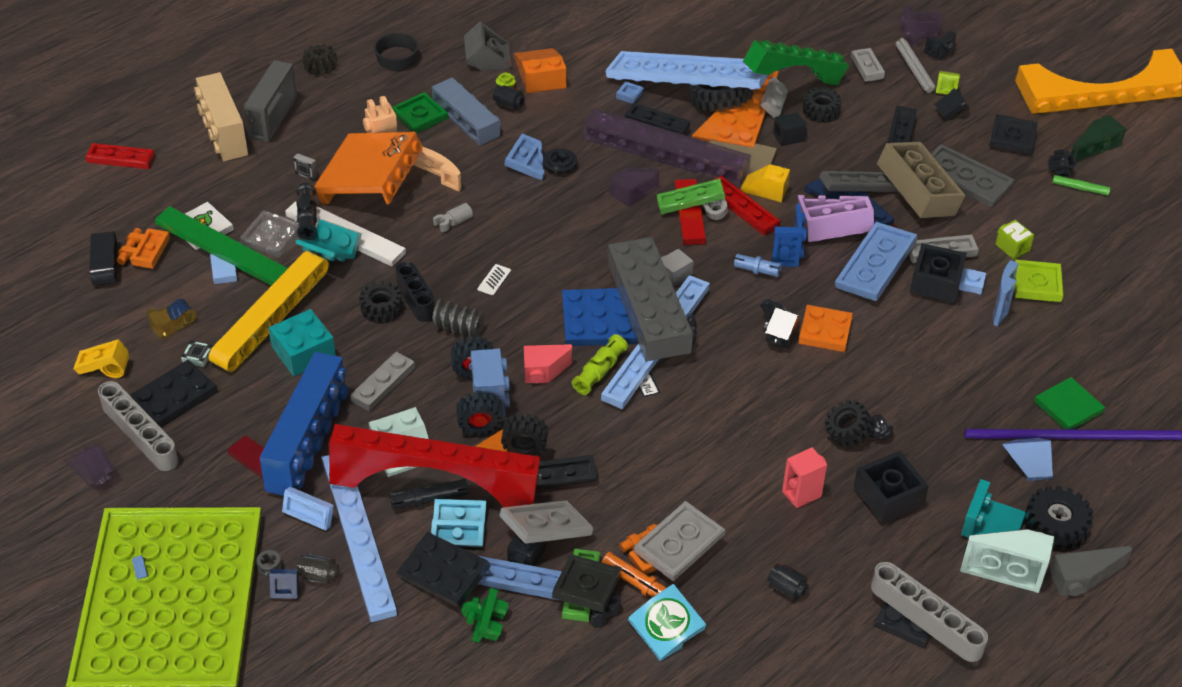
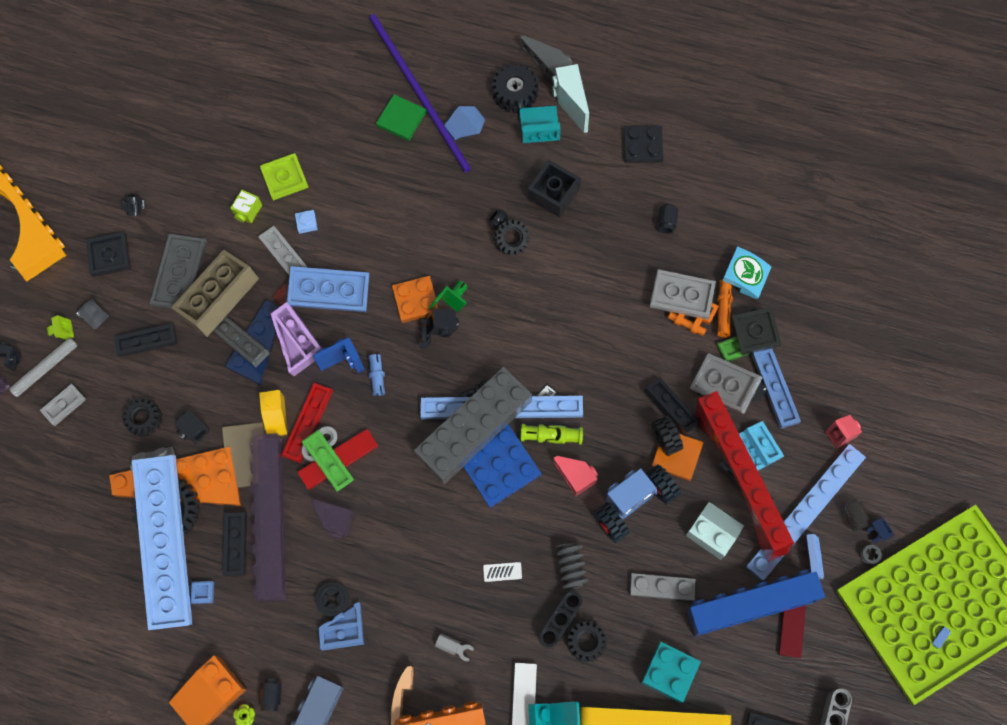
camera: 115 degrees left, 25 degrees up
(412, 601) = (843, 431): none -> coral slope
(443, 569) = (803, 429): black plate -> none
(482, 613) = (818, 385): green hips -> none
(678, 266) = (416, 431): light grey brick -> none
(770, 57) = (121, 443): green arch -> none
(804, 477) = (582, 239): coral brick -> none
(807, 349) = (452, 297): none -> green bracket
(929, 611) = (647, 132): light grey beam -> none
(938, 272) = (319, 240): black brick -> none
(1005, 293) = (324, 187): medium blue slope -> none
(1081, 185) = (148, 187): bright green piece -> none
(1099, 137) = (83, 191): clear green slope -> none

